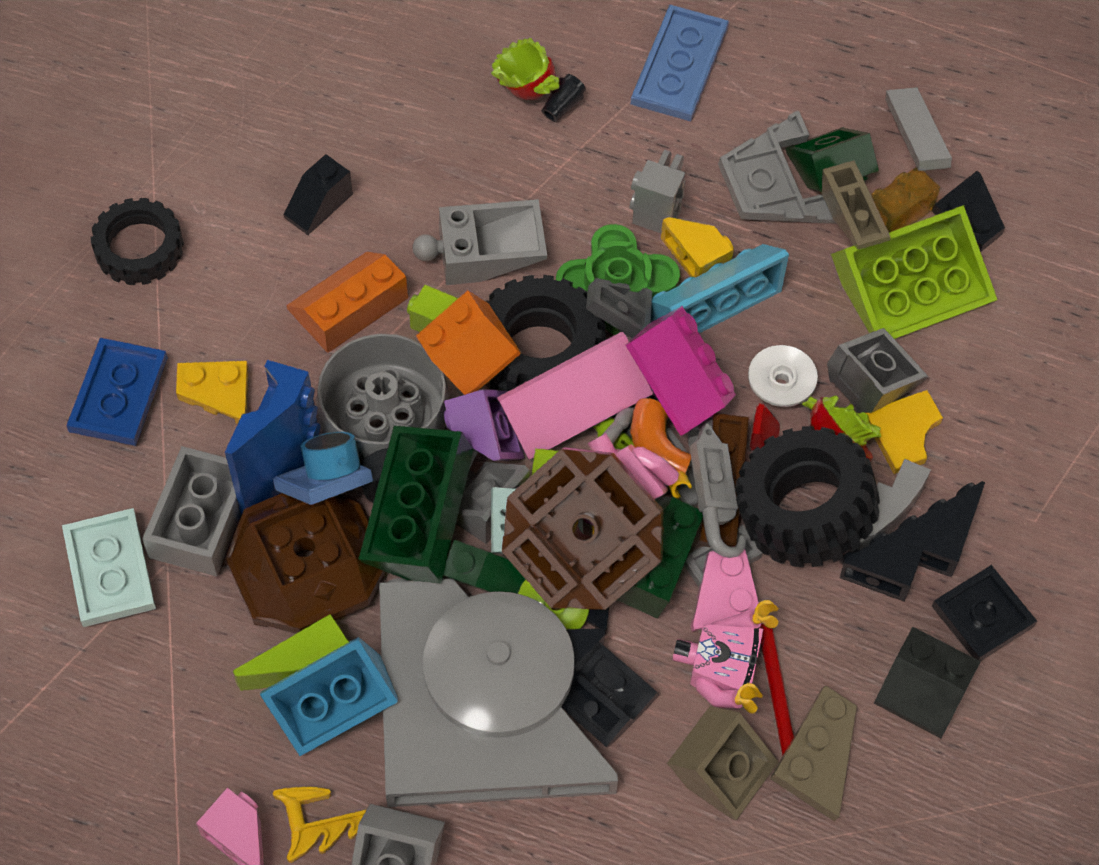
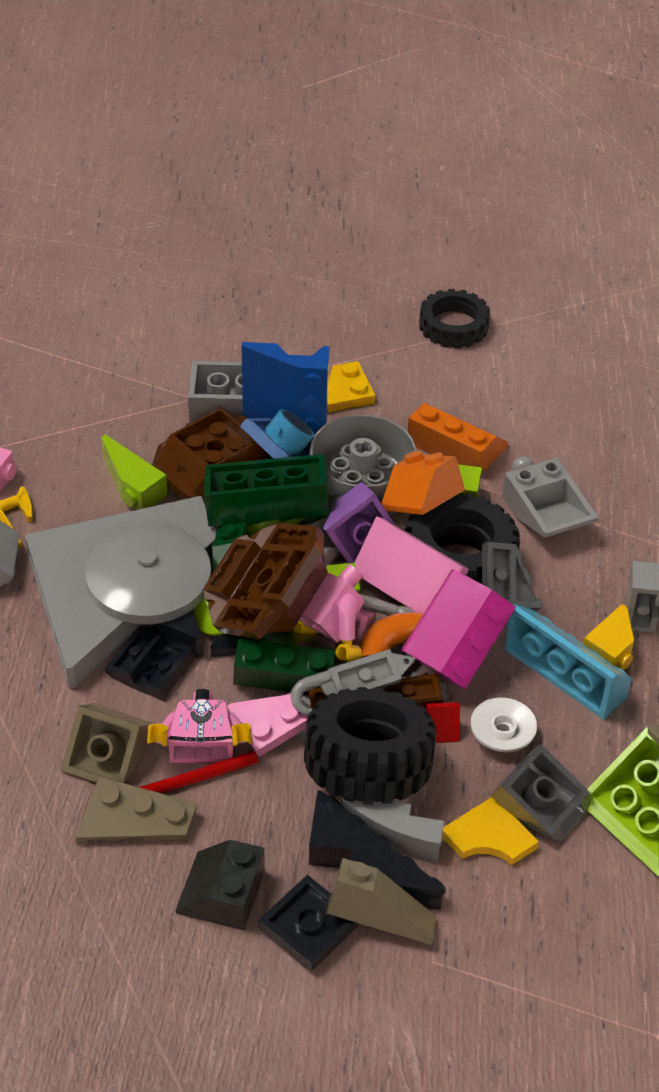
camera: 75 degrees right, 15 degrees down
(108, 567) = (170, 365): light aqua plate -> none
(117, 391) = (310, 333): blue plate -> none
(318, 194) = (545, 400): black slope -> none
(330, 695) = (99, 486): dark azure slope -> none
(617, 259) = (565, 592): bright green plant -> none
(842, 420) = (461, 774): lime hair -> none
(986, 546) = (376, 901): none -> dark tan slope

